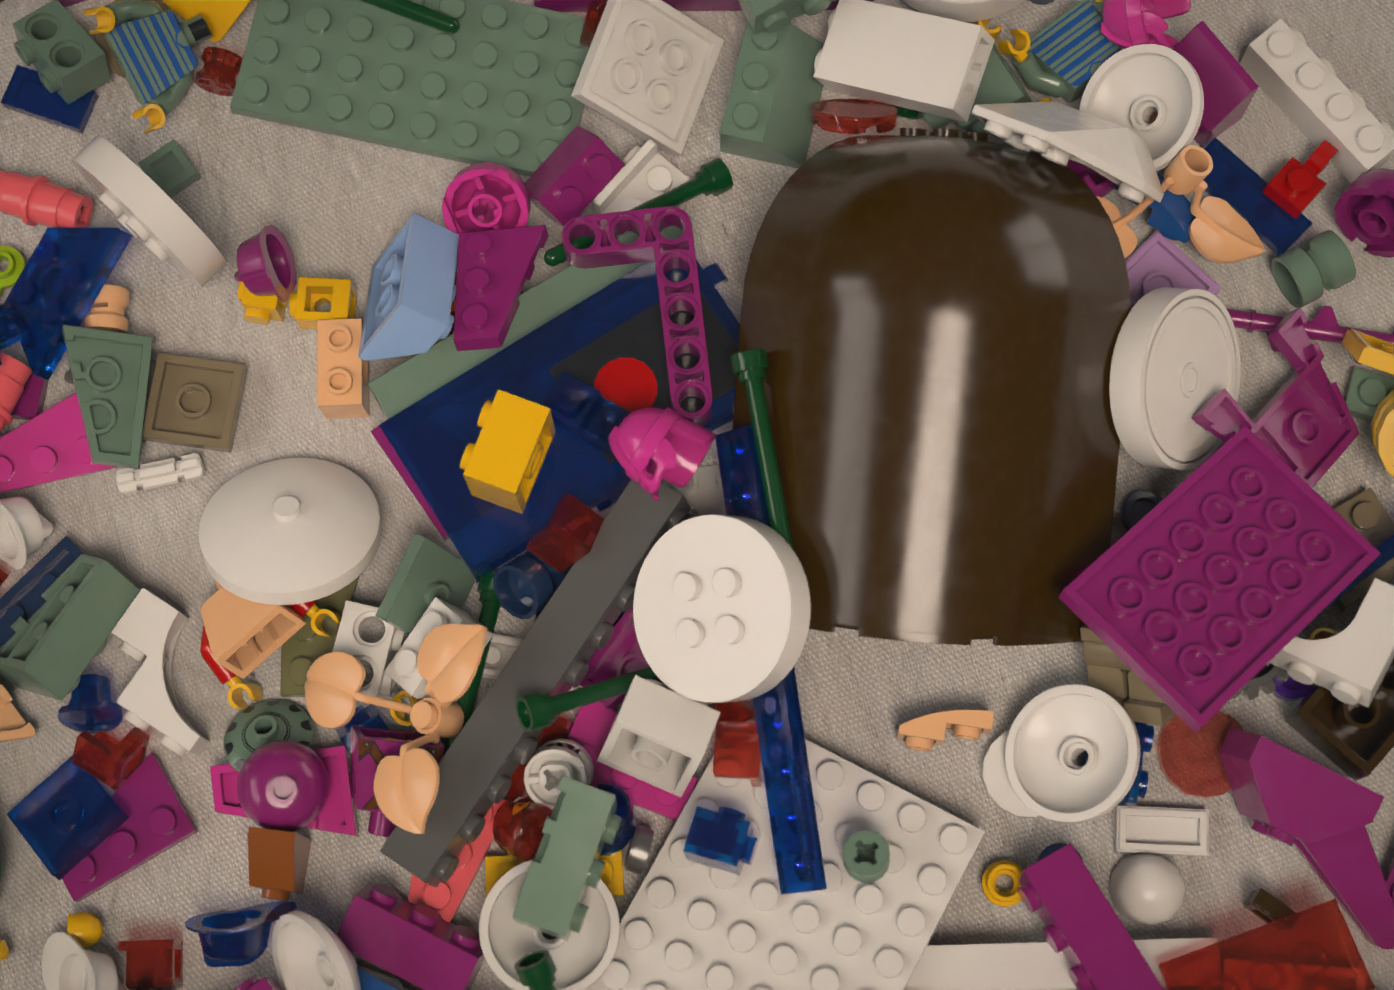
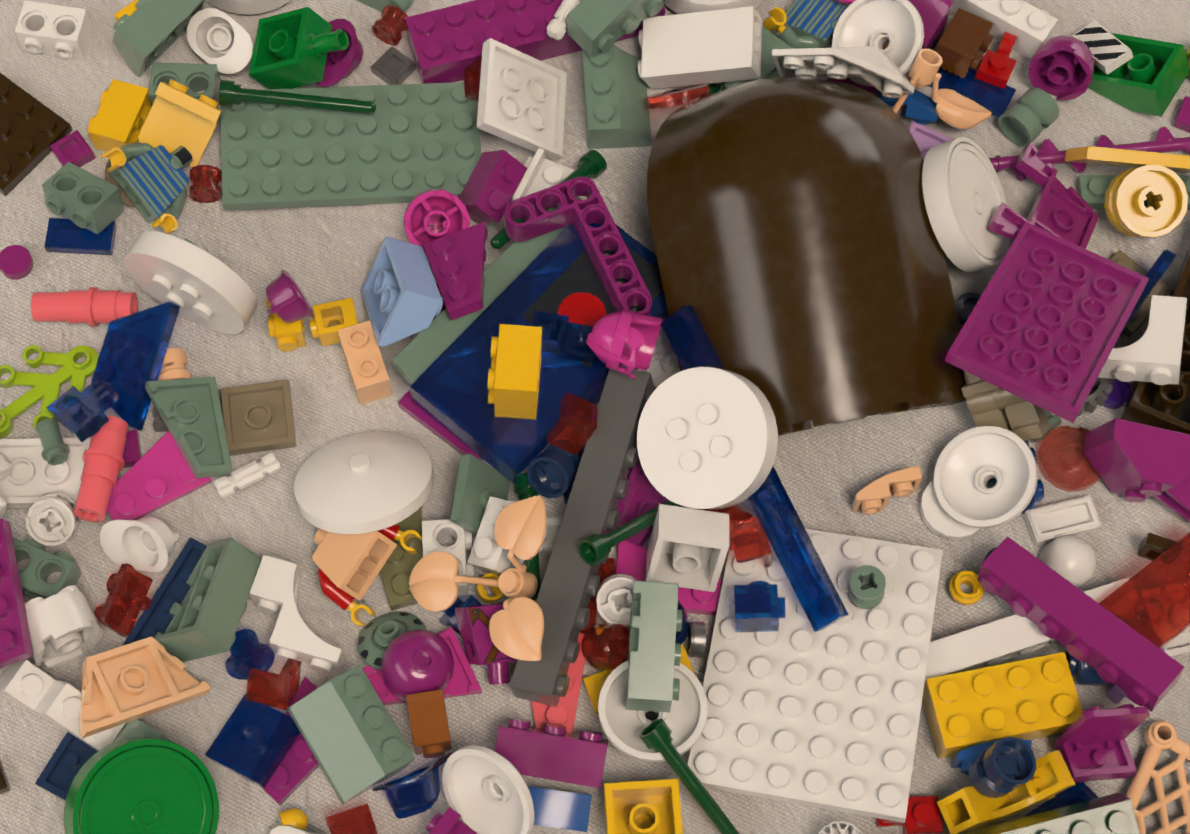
camera: 25 degrees left, 10 degrees down
(178, 848) = (351, 734): none -> sand green slope
(751, 370) = (675, 267): dark green piece -> none
(1259, 140) = (963, 42): none -> reddish brown brick

